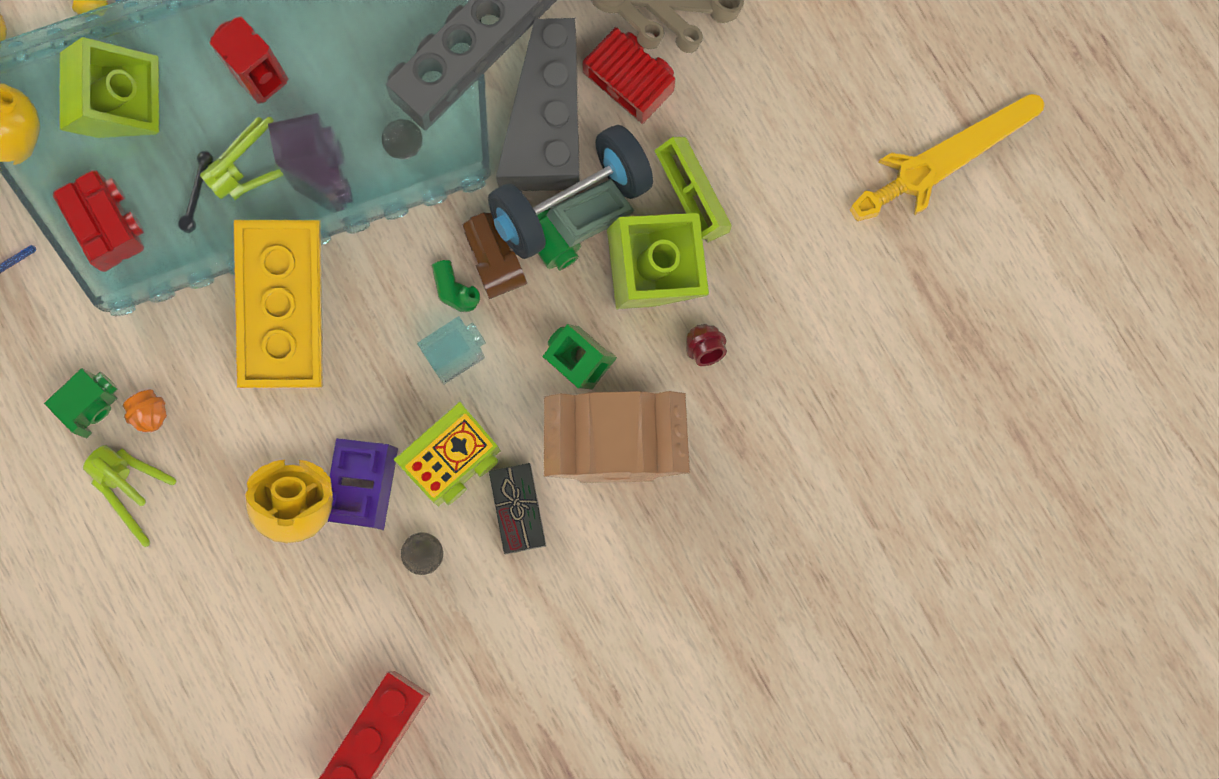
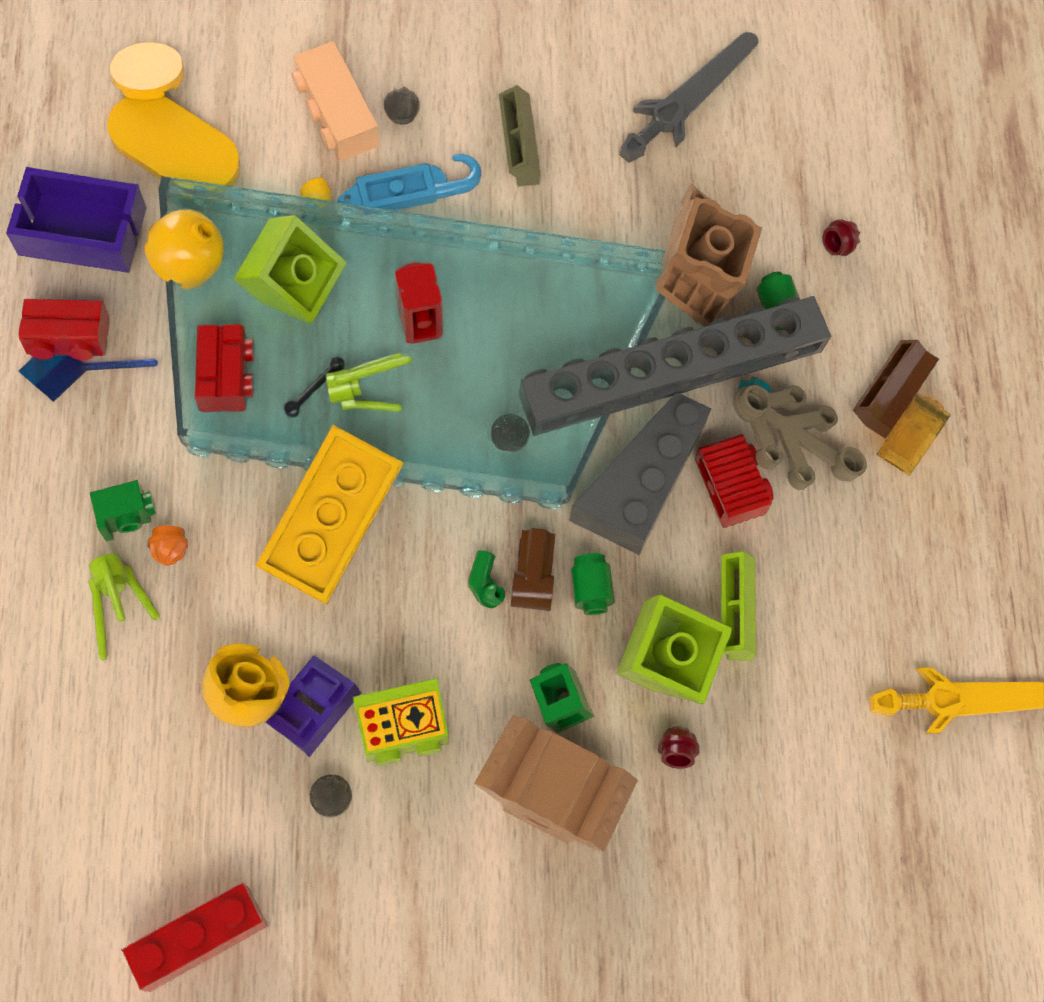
camera: 20 degrees right, 10 degrees down
(311, 160) = (424, 410): clear purple slope -> none
(453, 349) = (455, 632): clear light blue brick -> none
(517, 508) = (435, 802): pearl dark grey tile -> none
(589, 212) = (636, 578): sand green tile -> none
(621, 161) = (688, 551): black axle -> none

